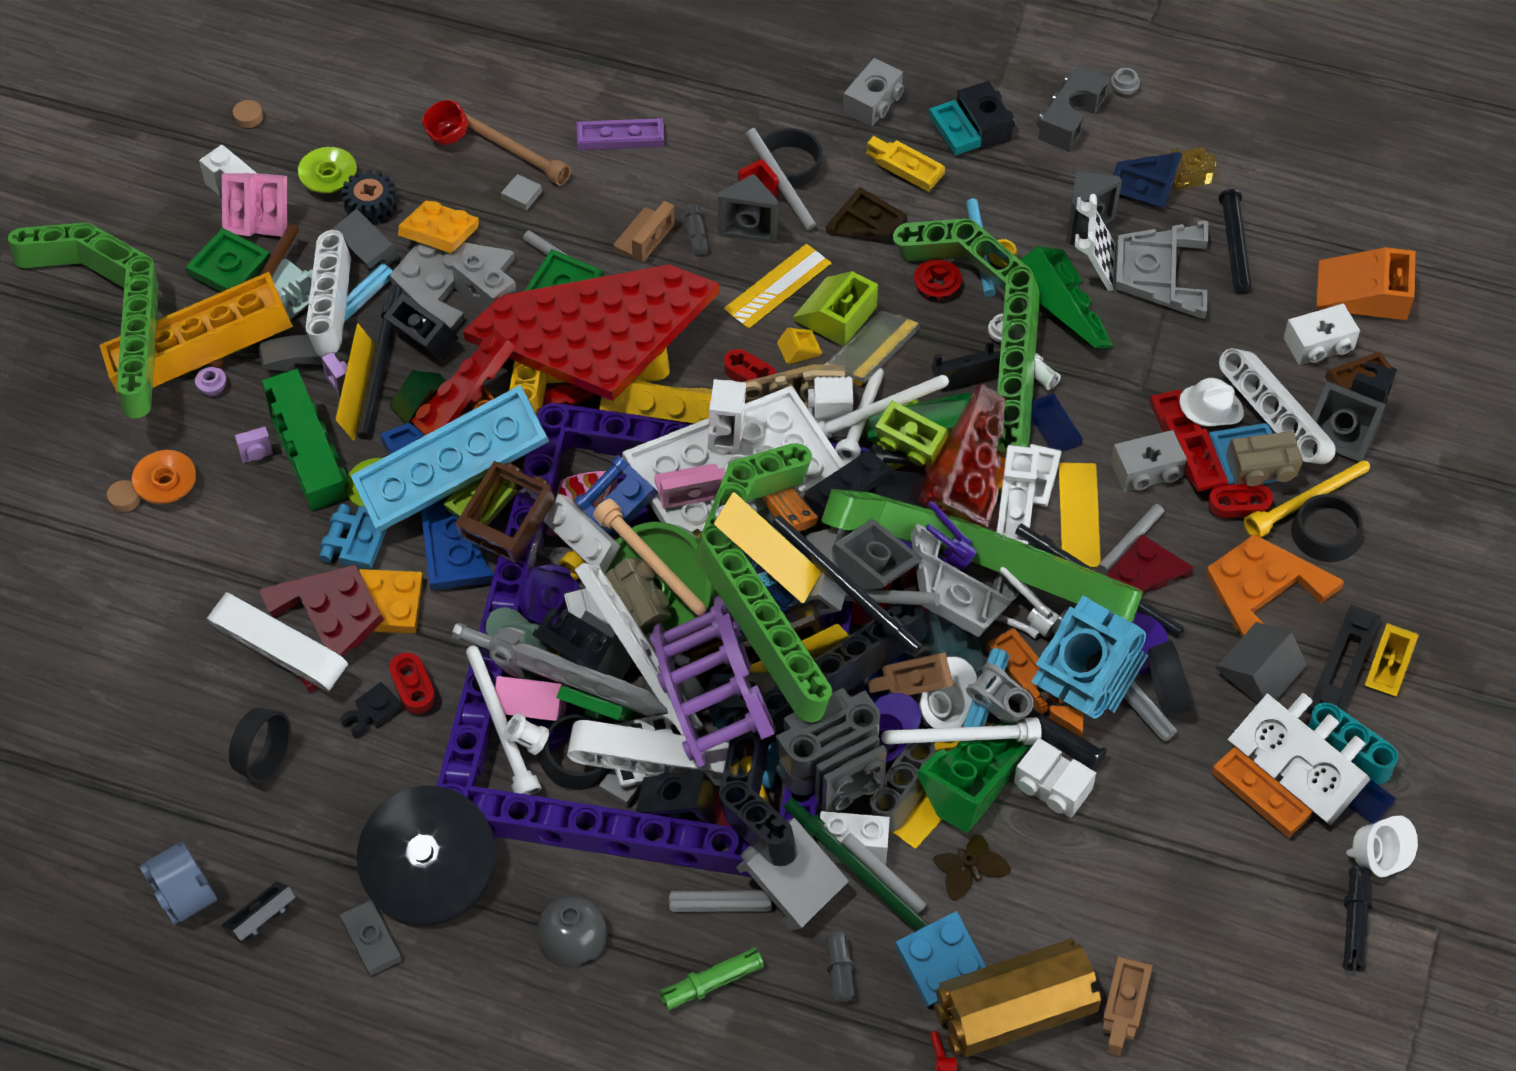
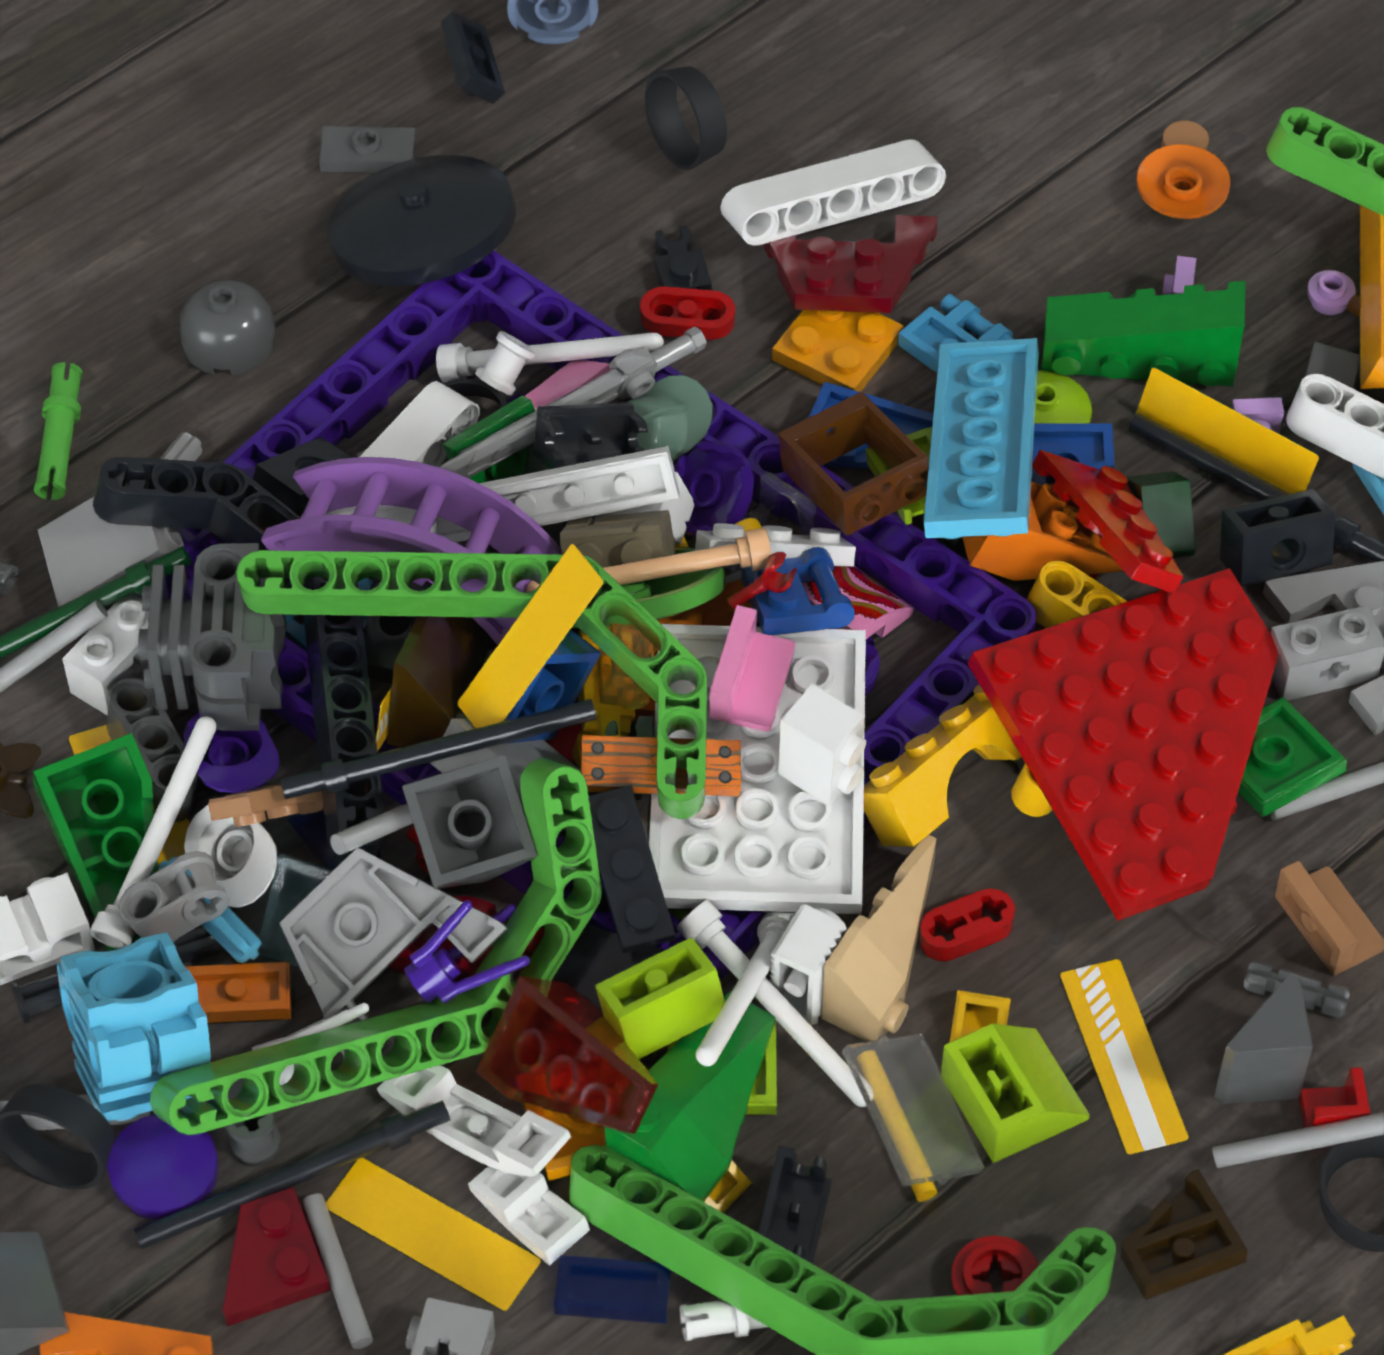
camera: 120 degrees right, 0 degrees up
(623, 491) = (769, 580): none -> red hand

